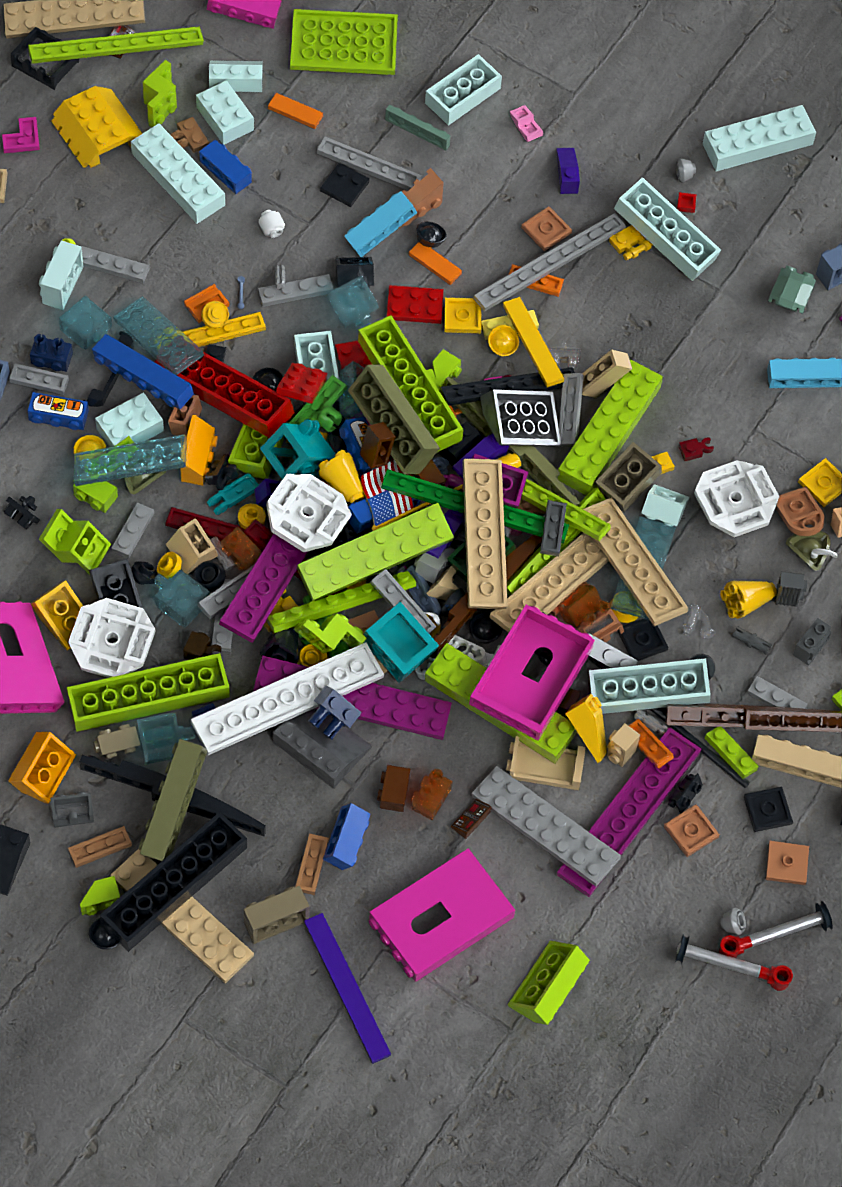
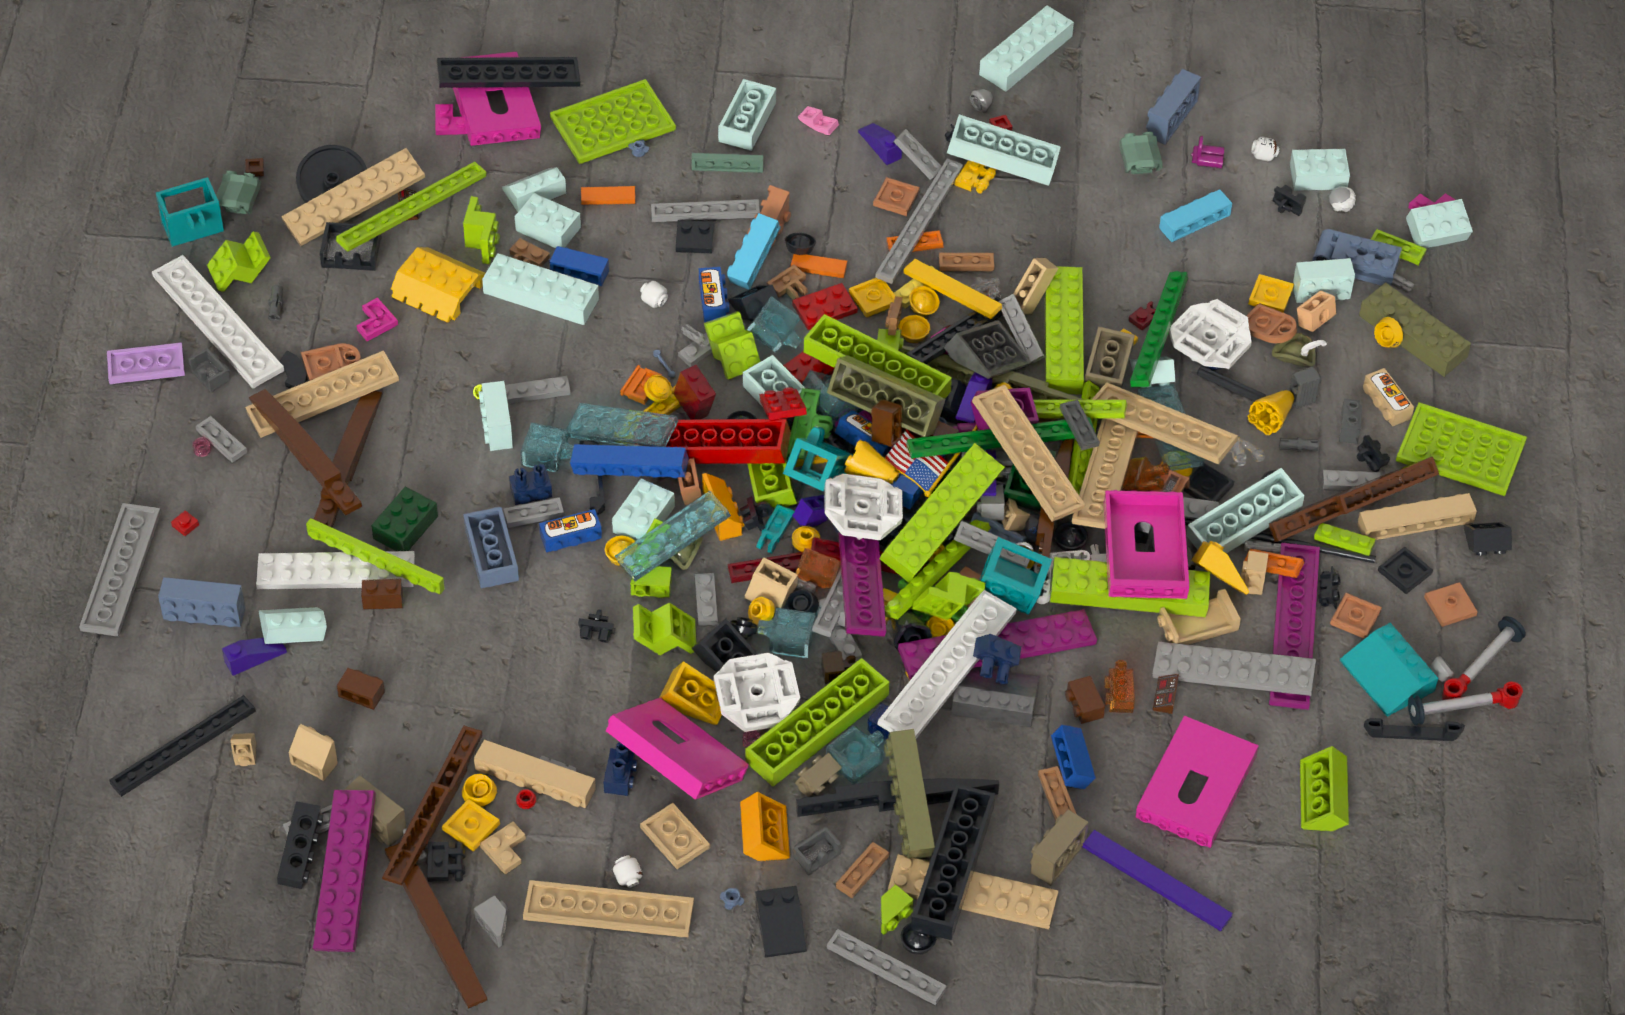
camera: 25 degrees left, 10 degrees down
(62, 946) = (886, 967): none -> light grey plate
(81, 674) = (748, 736): none -> clear pink bush
(239, 335) = (694, 393): none -> dark red brick
(305, 303) = (732, 344): none -> lime bracket
(323, 247) = (713, 293): none -> brick
(350, 81) = (639, 148): none -> sand blue plate
(396, 265) = (787, 281): none -> medium nougat hinge
(464, 343) = (894, 315): none -> medium nougat plate
(478, 362) = (914, 328): none -> yellow hat
(567, 321) = (966, 261): none -> medium nougat plate
(588, 197) = (917, 154): none -> light grey plate
(685, 898) = (1389, 669): none -> teal slope
(691, 469) = (1159, 329): none -> green plate
(699, 983) = (1449, 732): none -> black piece
(729, 553) = (1229, 383): none -> black axle
(809, 682) = (1370, 453): none -> black hips

